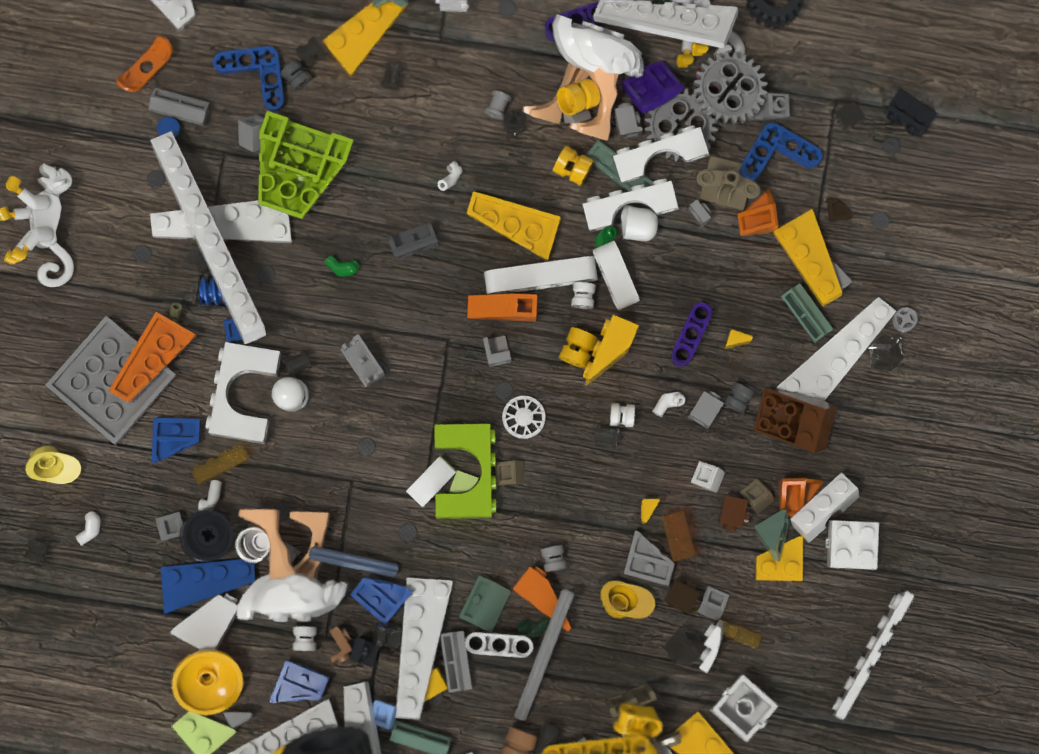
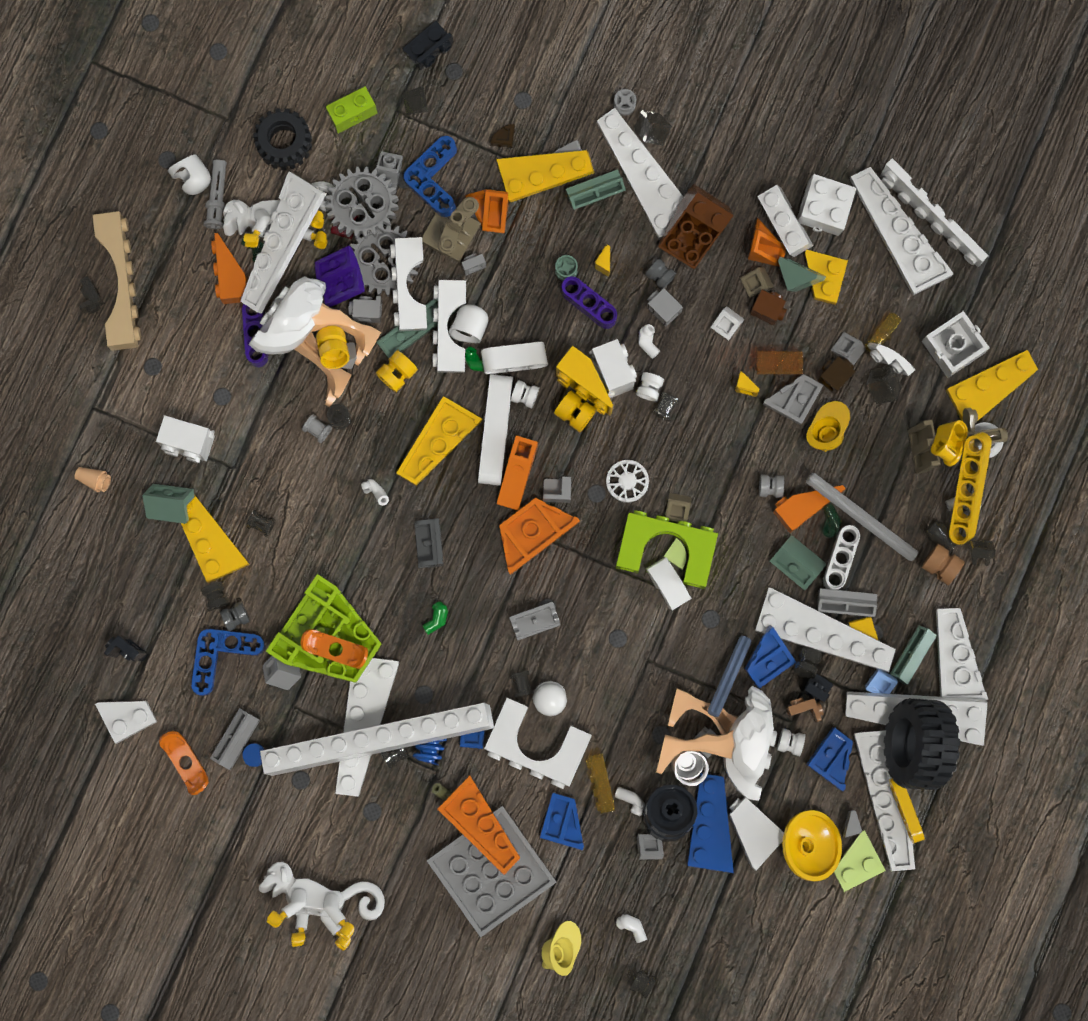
camera: 70 degrees left, 0 degrees up
(285, 159) = (319, 644): none -> orange piece
(449, 336) = (532, 531): none -> orange wing
(629, 373) = (612, 367): none -> white brick
(720, 300) = (566, 263): none -> sand green wheel
(822, 55) = (351, 109): none -> lime brick
(832, 639) = (909, 248): none -> white wing

